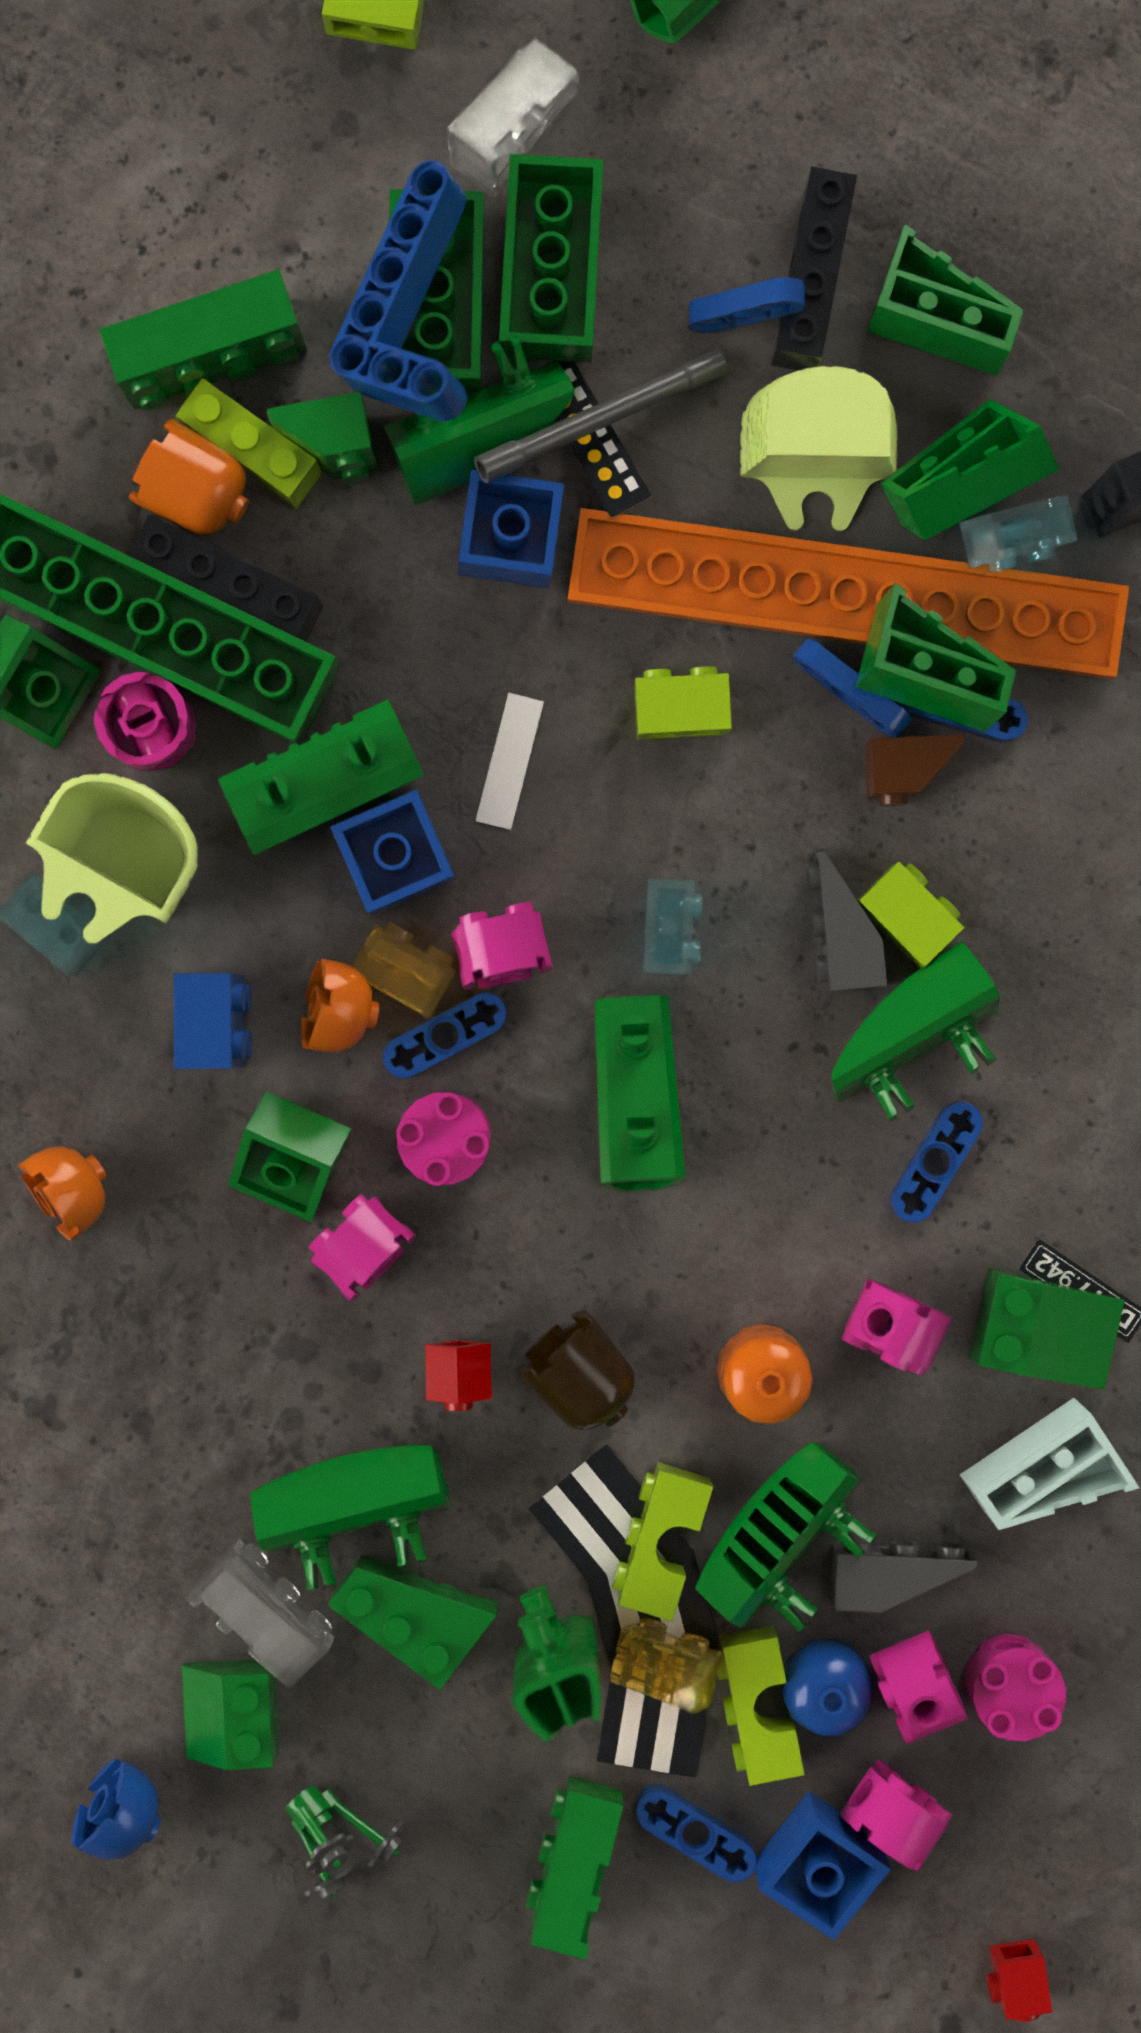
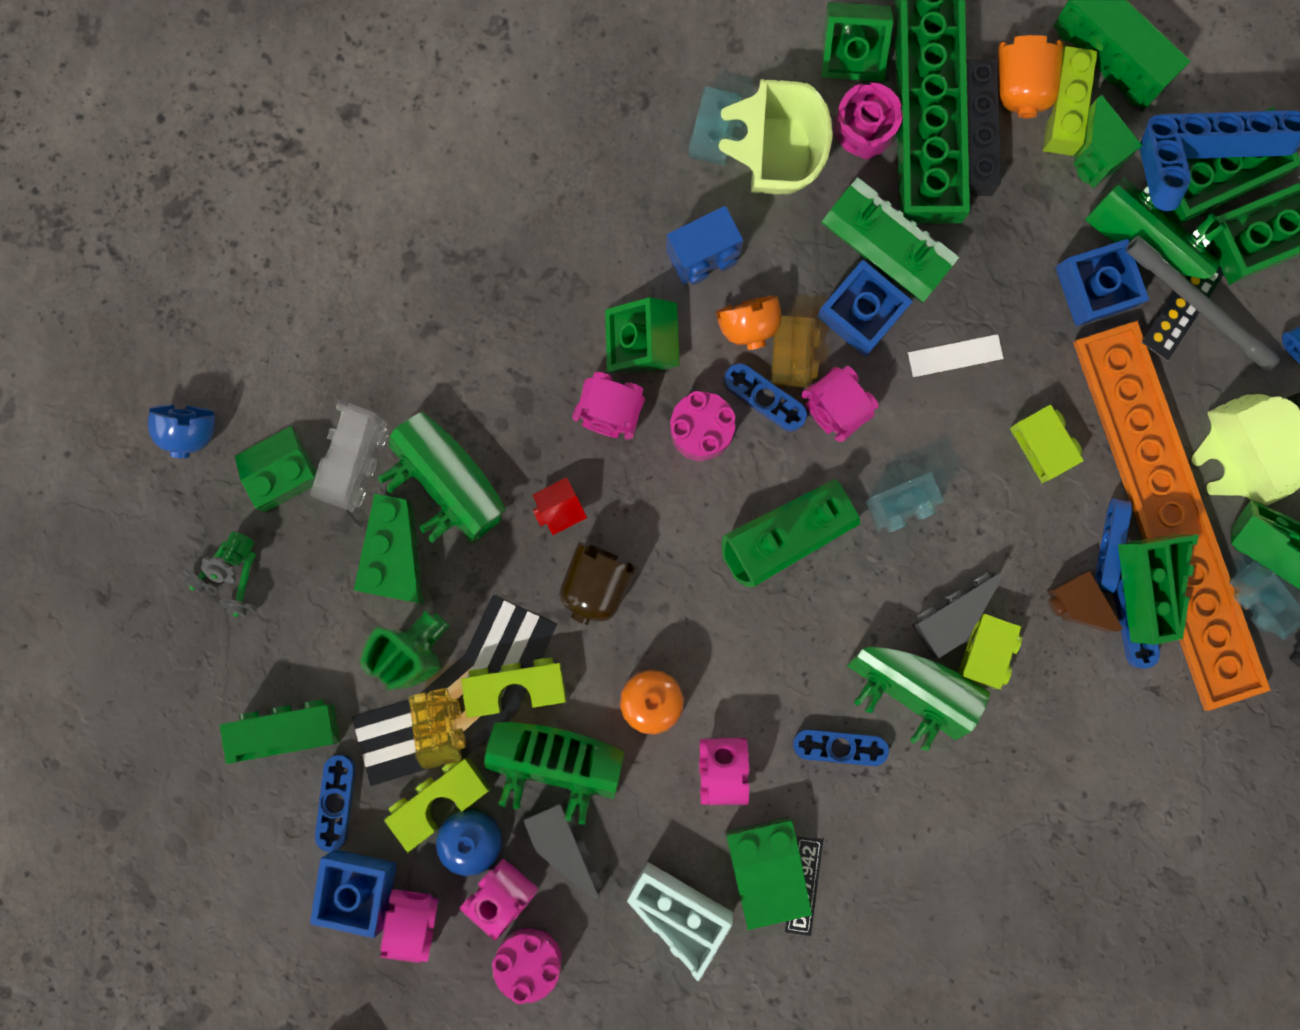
camera: 65 degrees right, 5 degrees down
(66, 1187) = (557, 209): orange cylinder -> none

